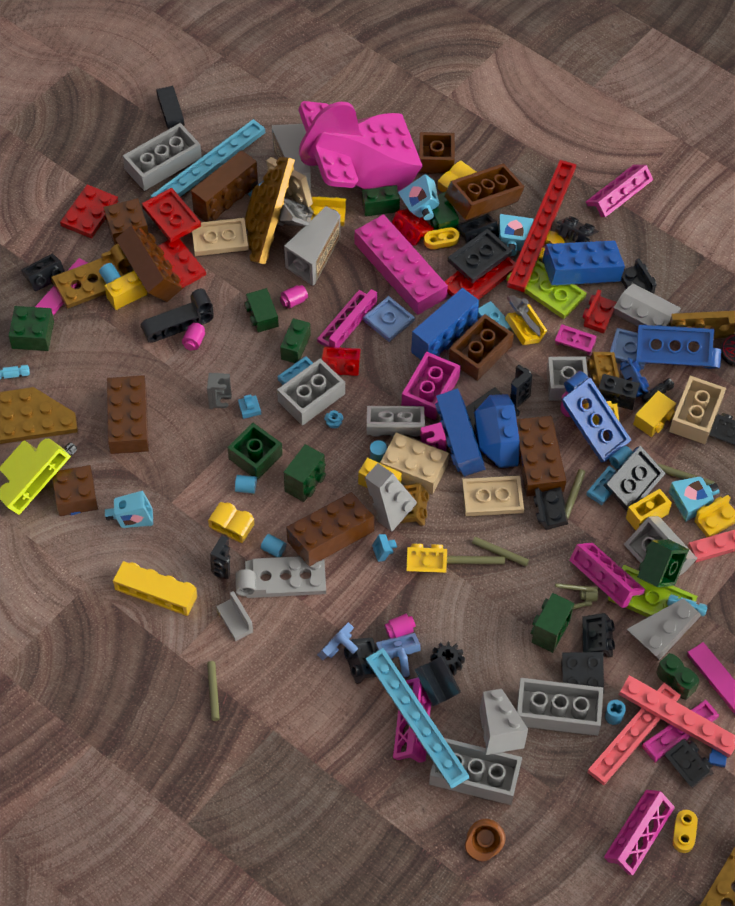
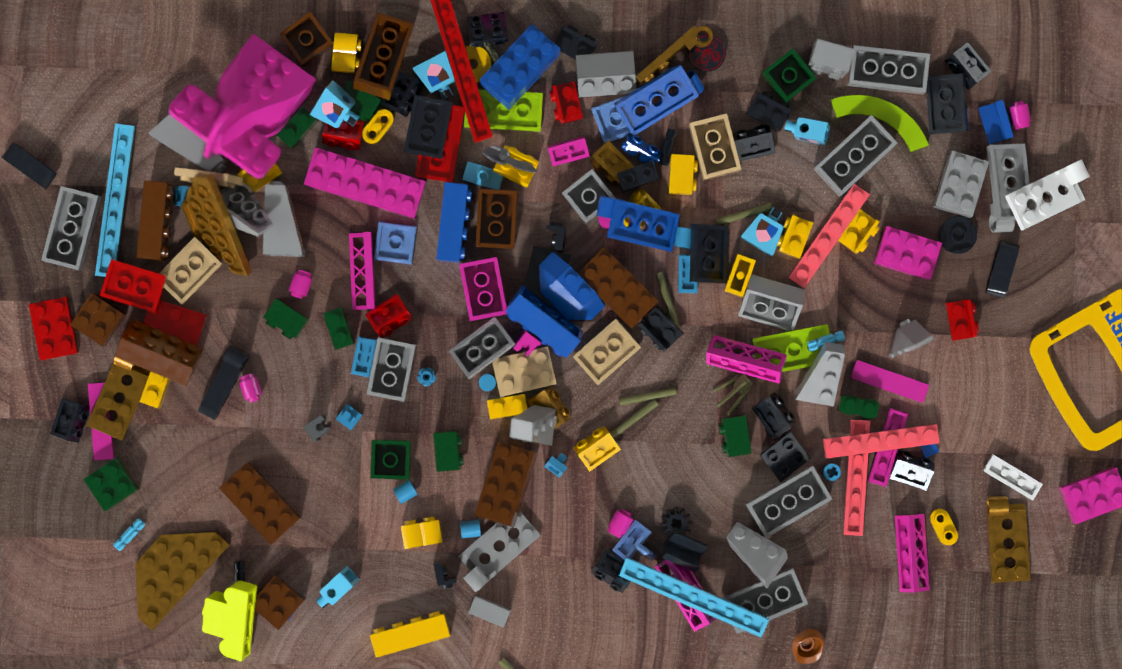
camera: 35 degrees left, 30 degrees up
(109, 273) = (134, 386): dark azure piece -> none
(341, 637) = (583, 575): medium blue plate -> none
(662, 563) = (786, 325): dark green brick -> none

